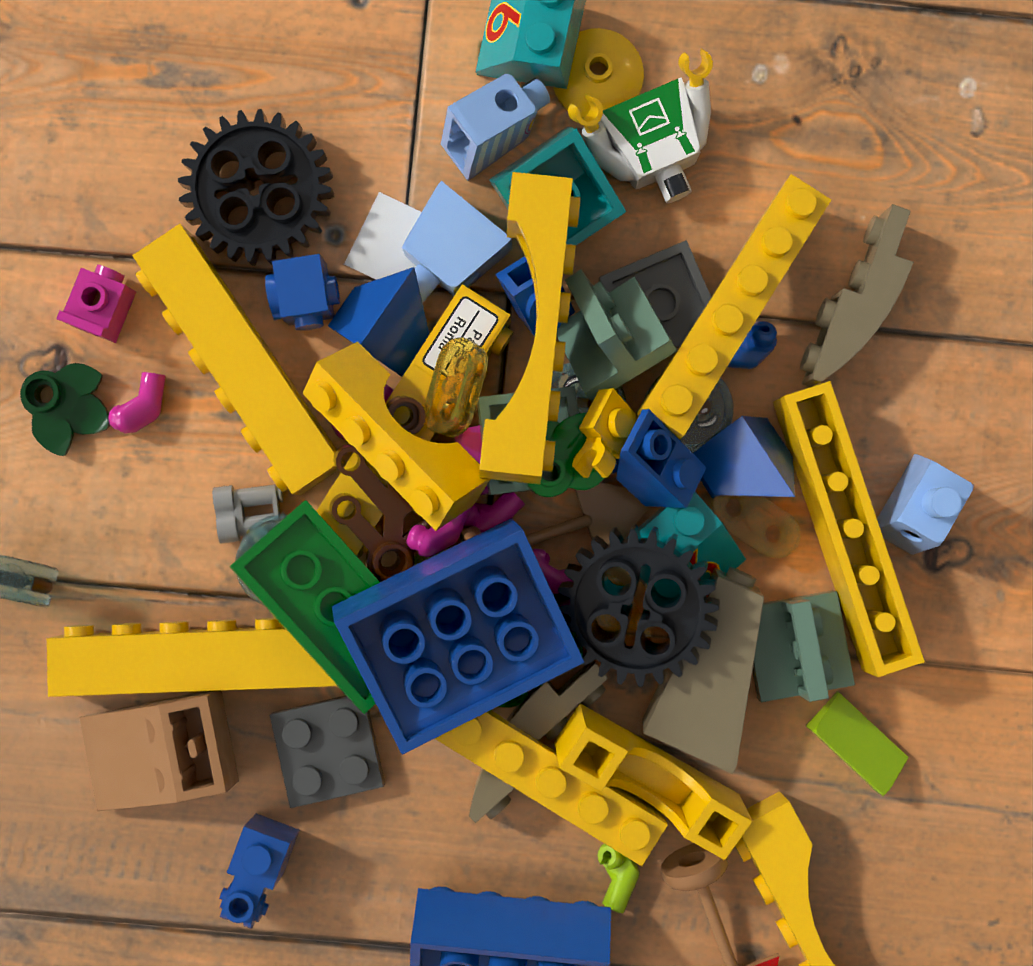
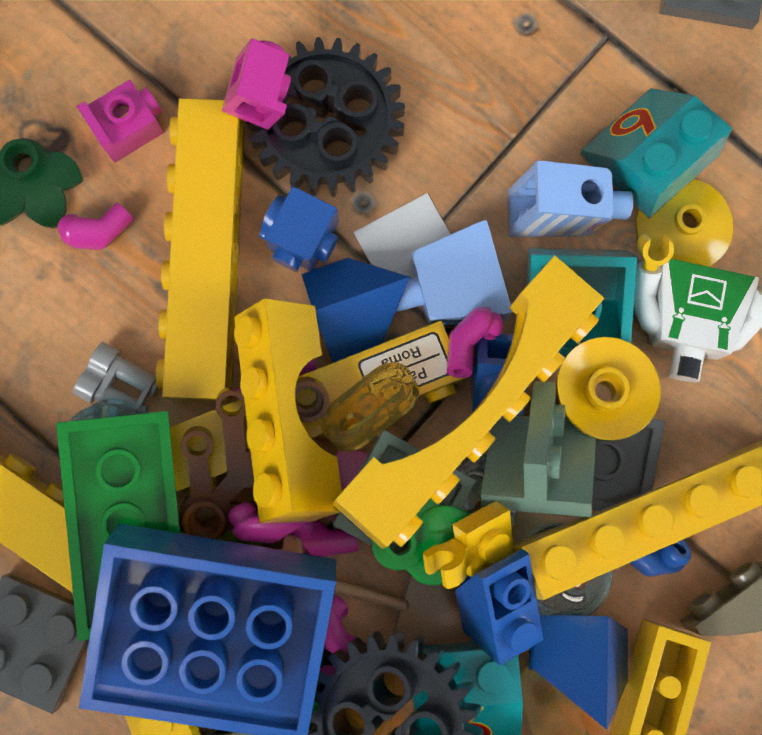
camera: 30 degrees right, 5 degrees down
(187, 199) = (258, 84): none -> dark pink brick
(488, 285) = (466, 334): none -> dark pink arm
(629, 224) = (625, 372): none -> yellow dish

